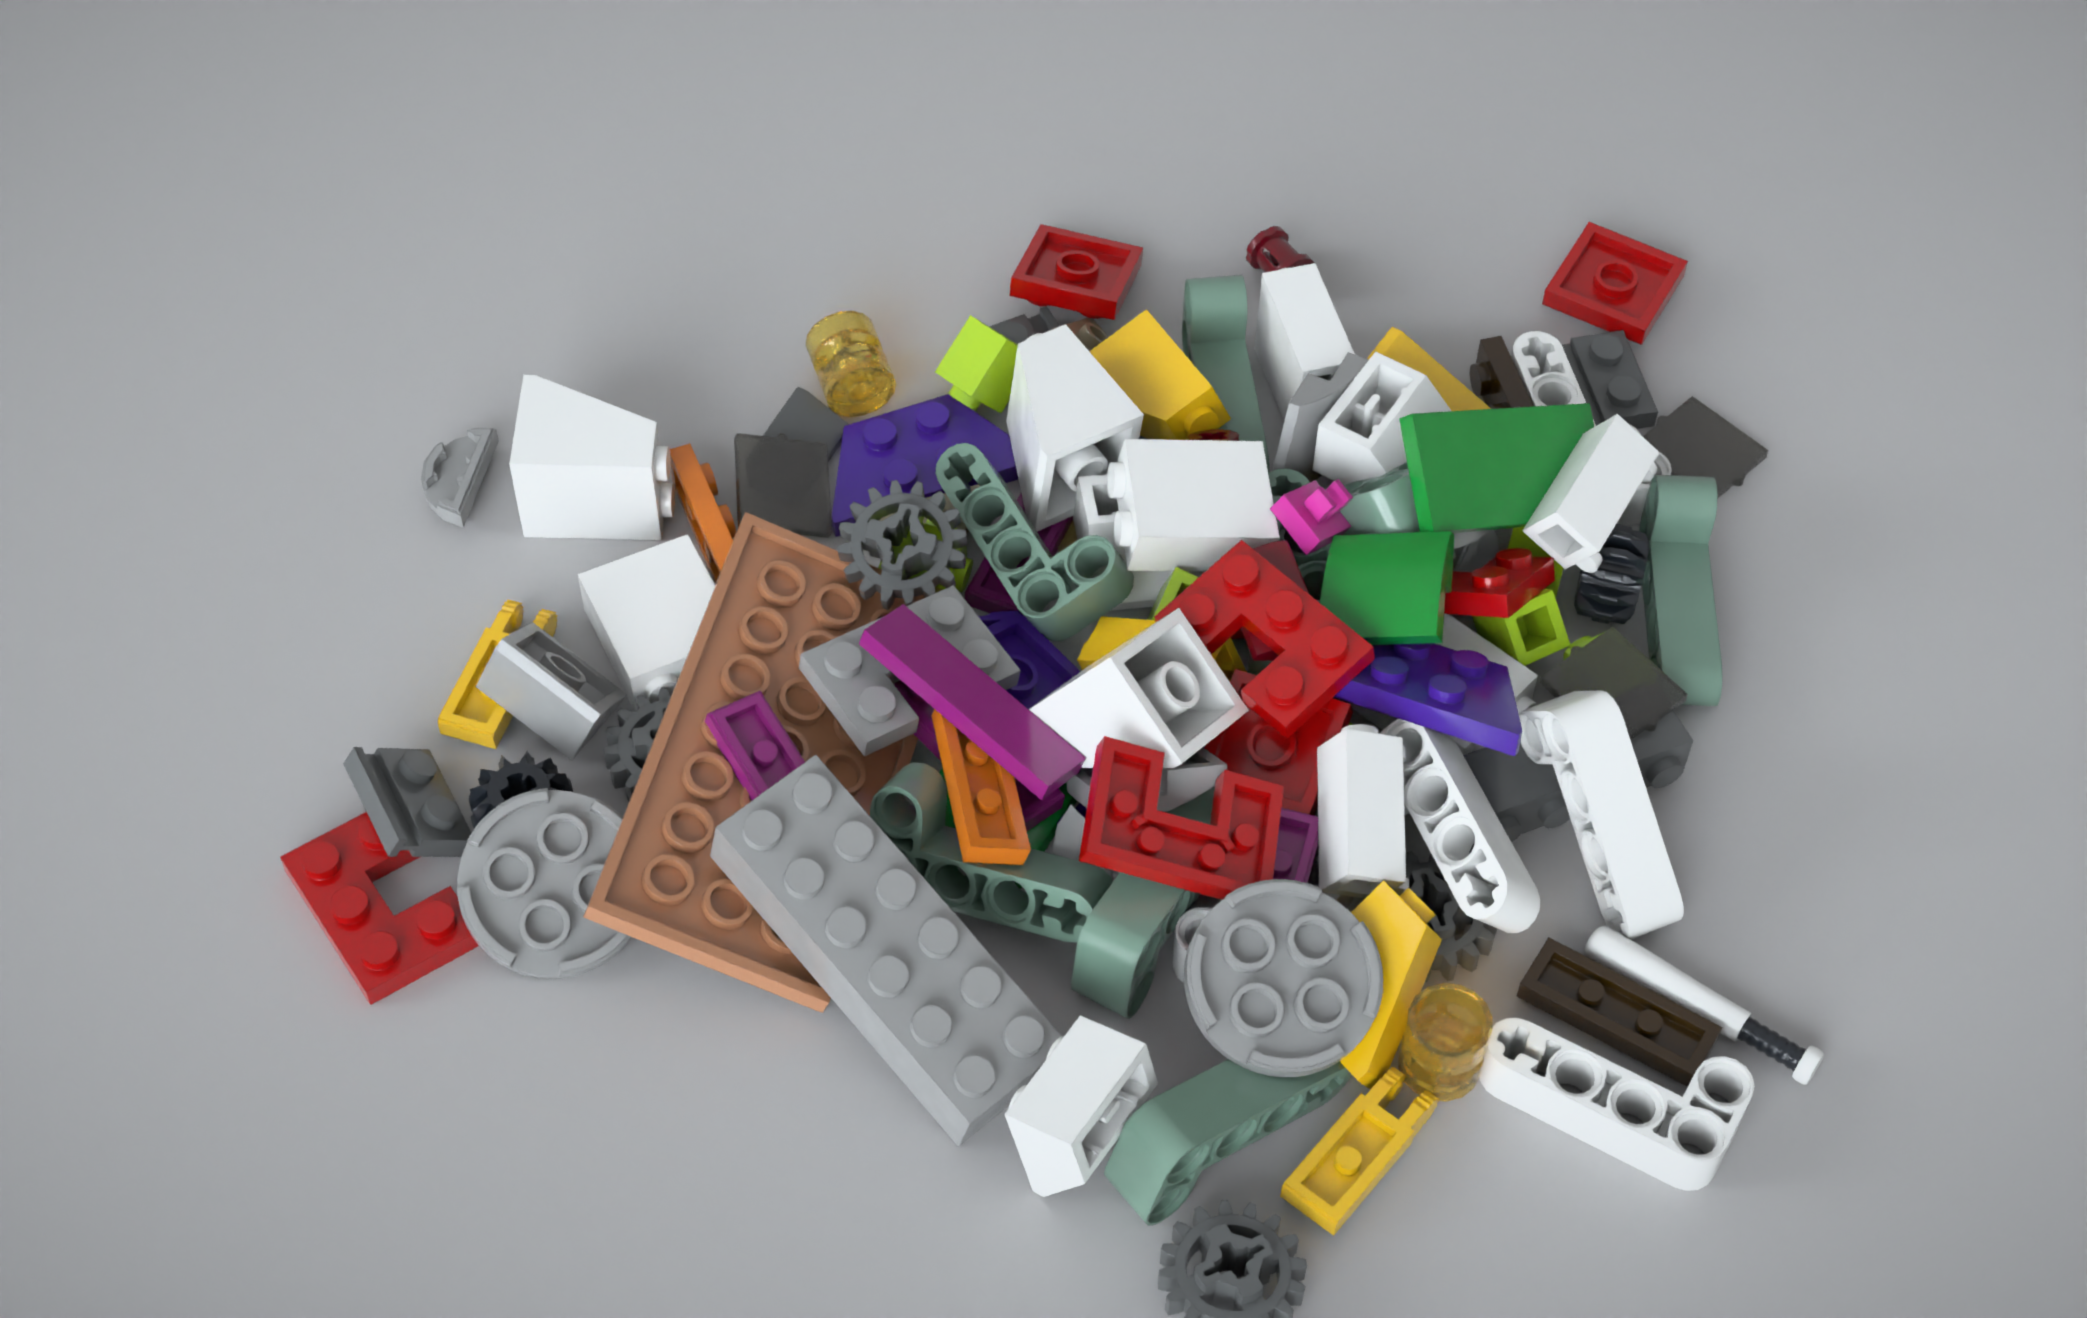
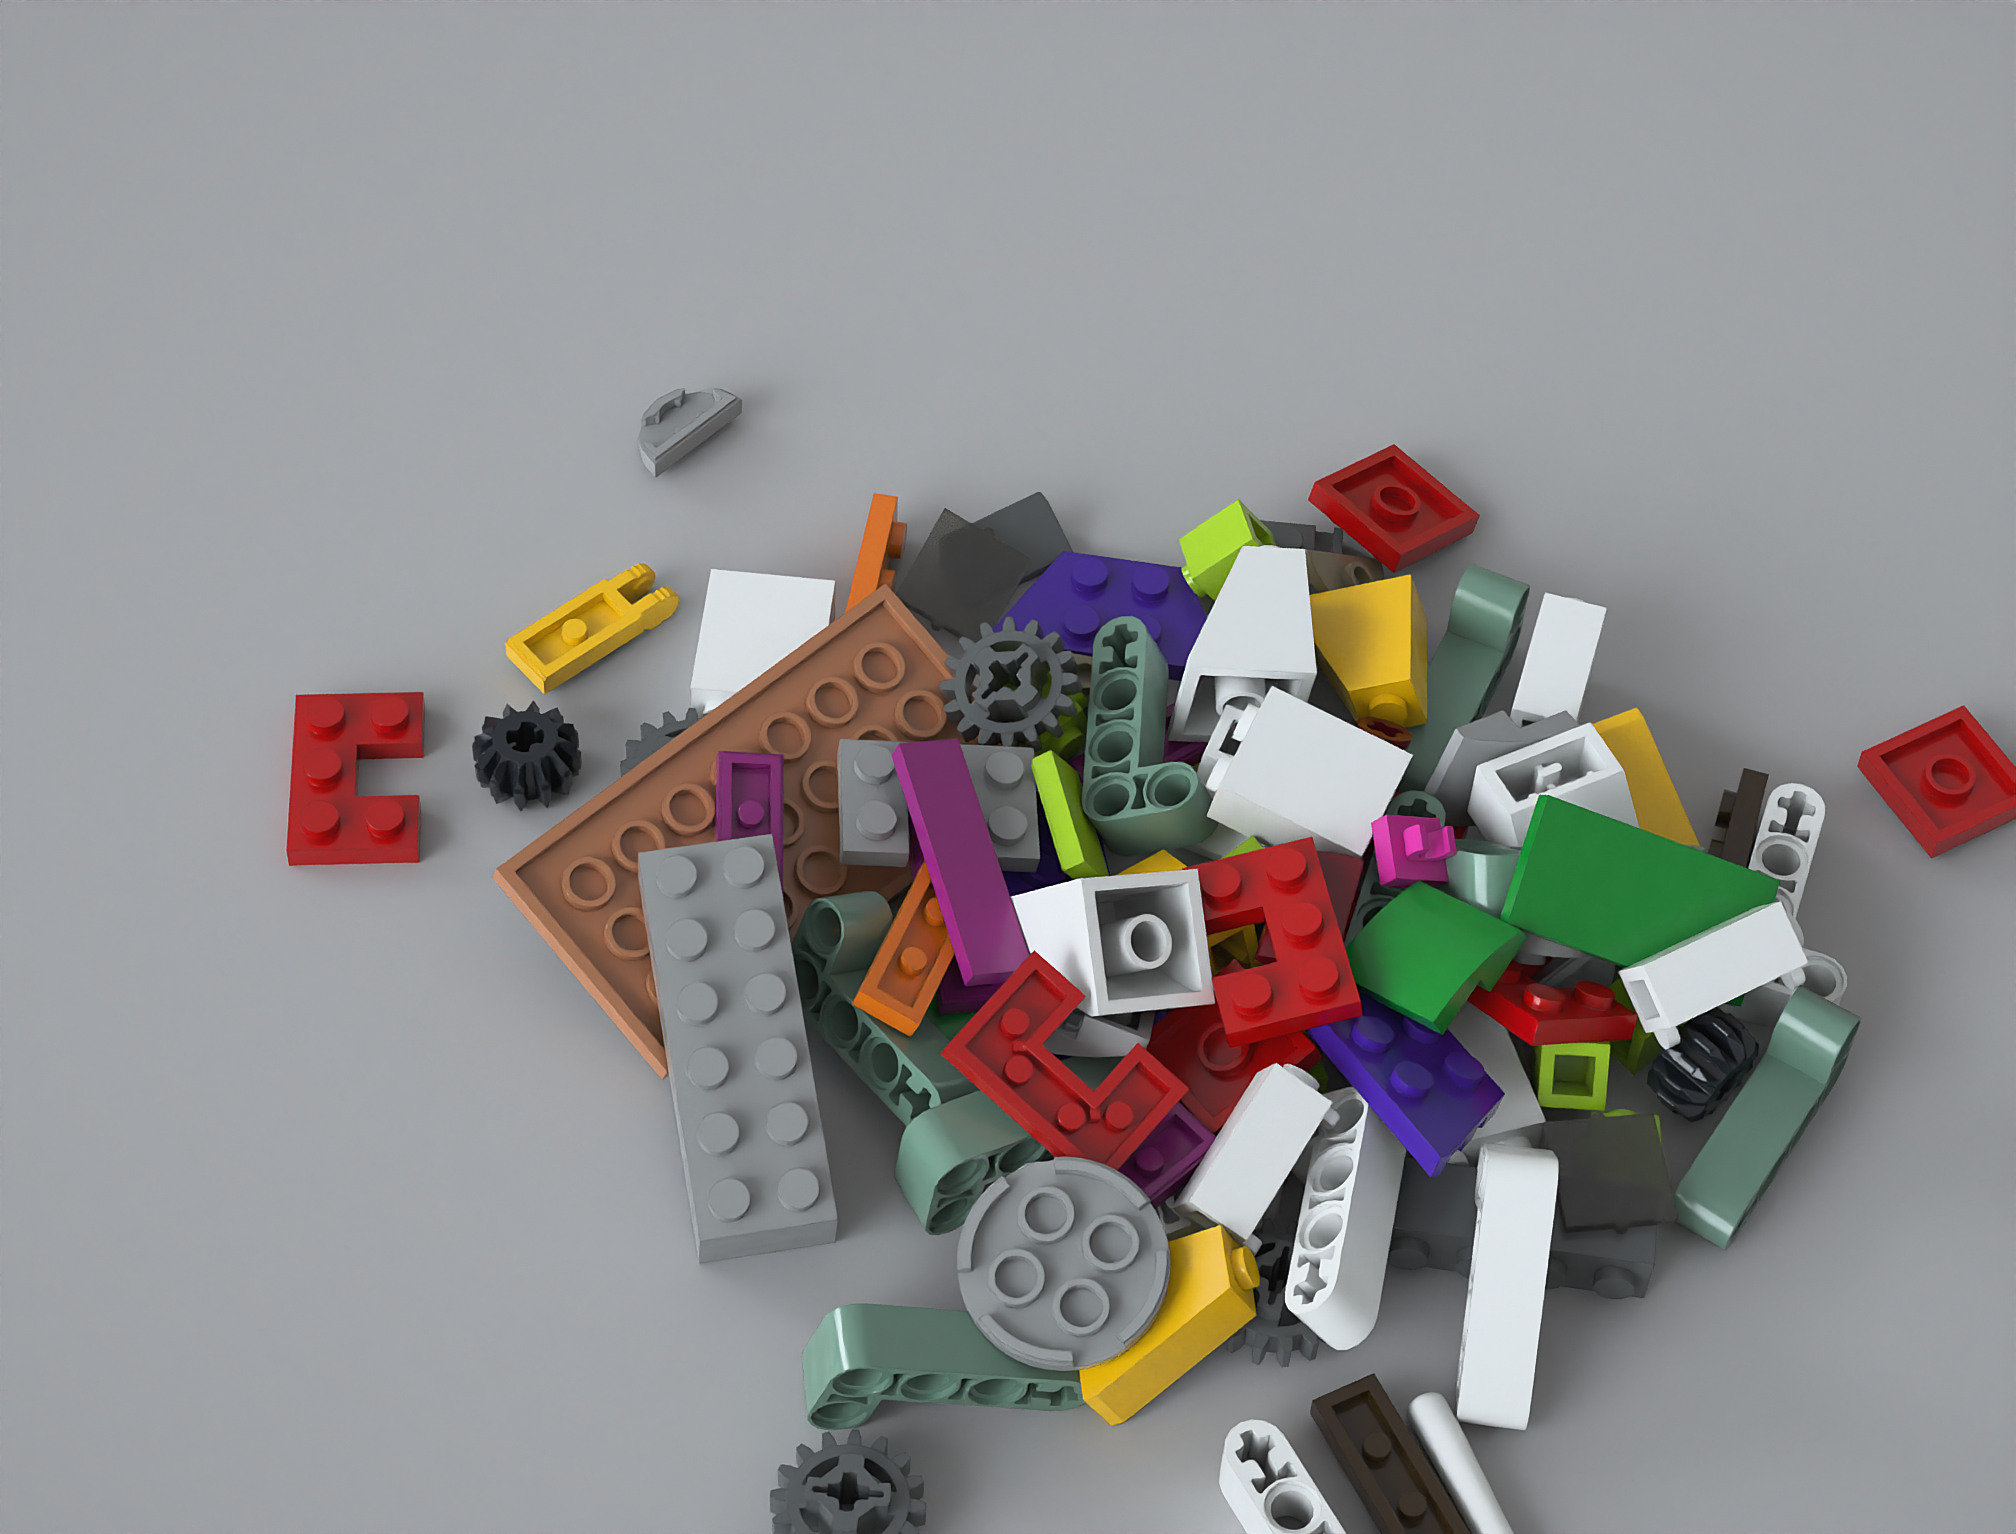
camera: 30 degrees right, 0 degrees up
(408, 802) = (432, 702): dark grey plate -> none
(531, 881) = (475, 818): light grey tile -> none
(549, 688) = (621, 659): light grey slope -> none
(587, 467) = (785, 473): white slope -> none
(850, 363) = (1107, 493): clear yellow wheel -> none
(1019, 629) = (1069, 825): none -> lime tile
(1078, 1104) = (800, 1270): white slope -> none
(1280, 252) = (1612, 591): dark red bush -> none
(1356, 1153) = (1049, 1466): yellow hinge -> none
(1445, 1041) = (1193, 1410): clear yellow wheel -> none
(1611, 378) = (1857, 876): dark grey plate -> none
(1705, 445) = (1912, 994): clear smoke piece -> none

